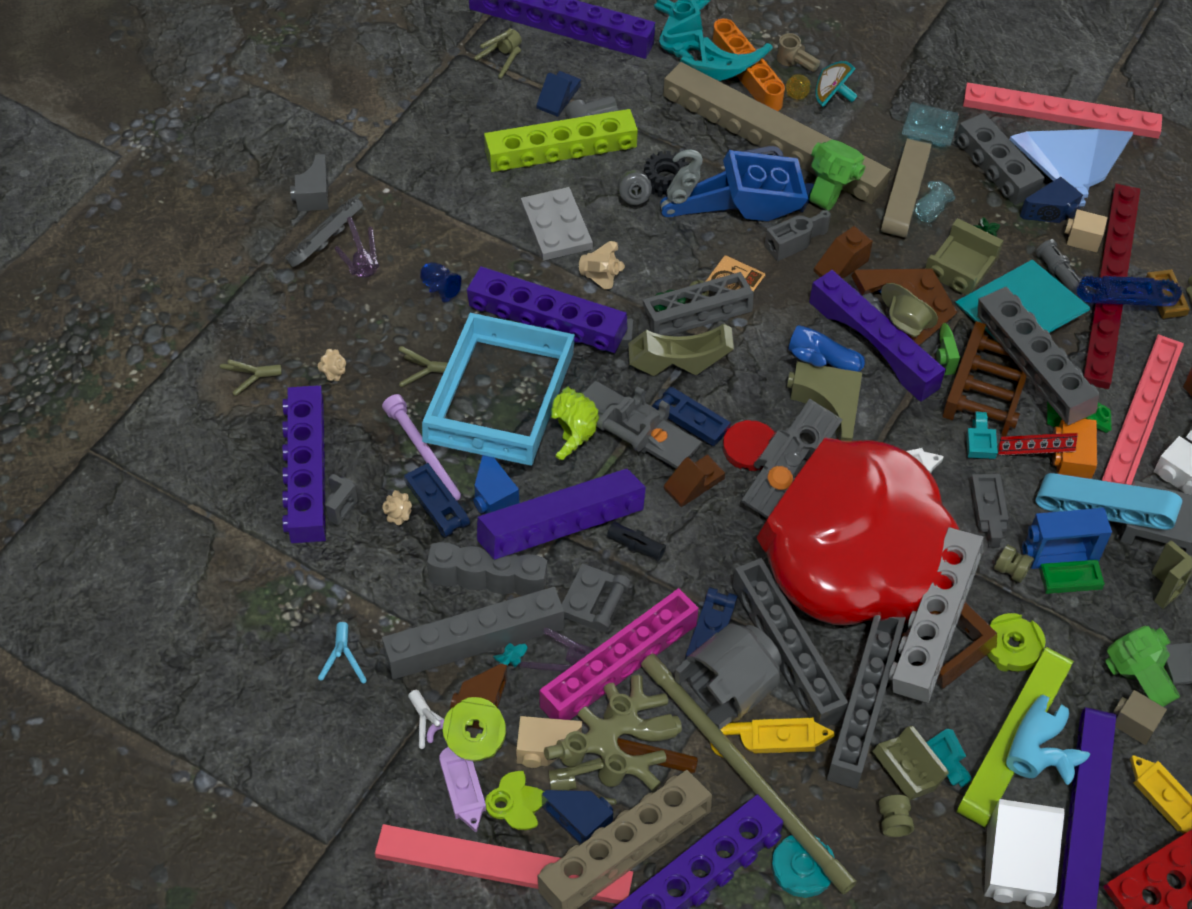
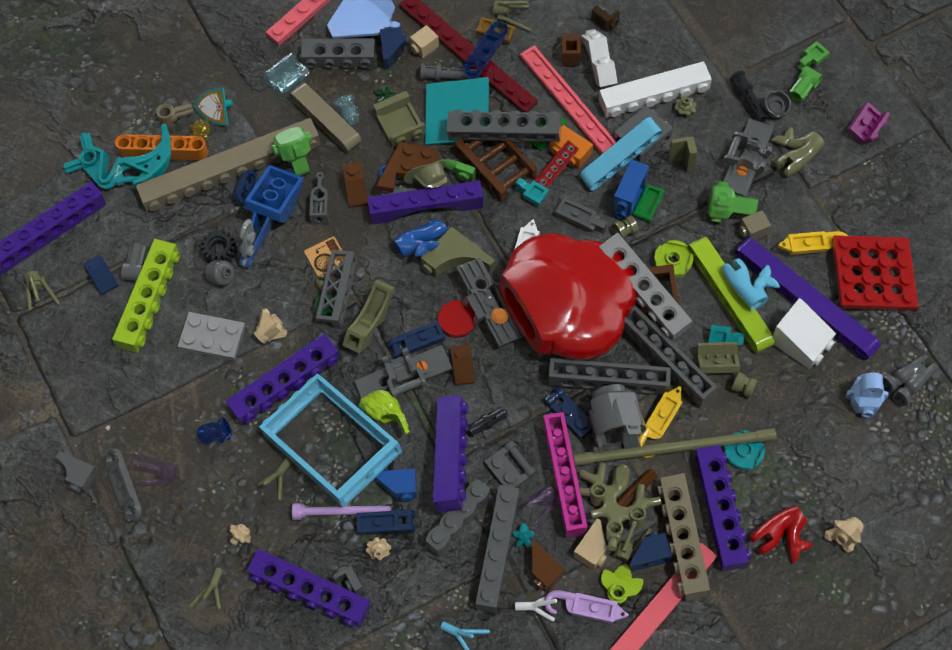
camera: 55 degrees left, 10 degrees up
(463, 715) = (569, 569): lime plate -> none

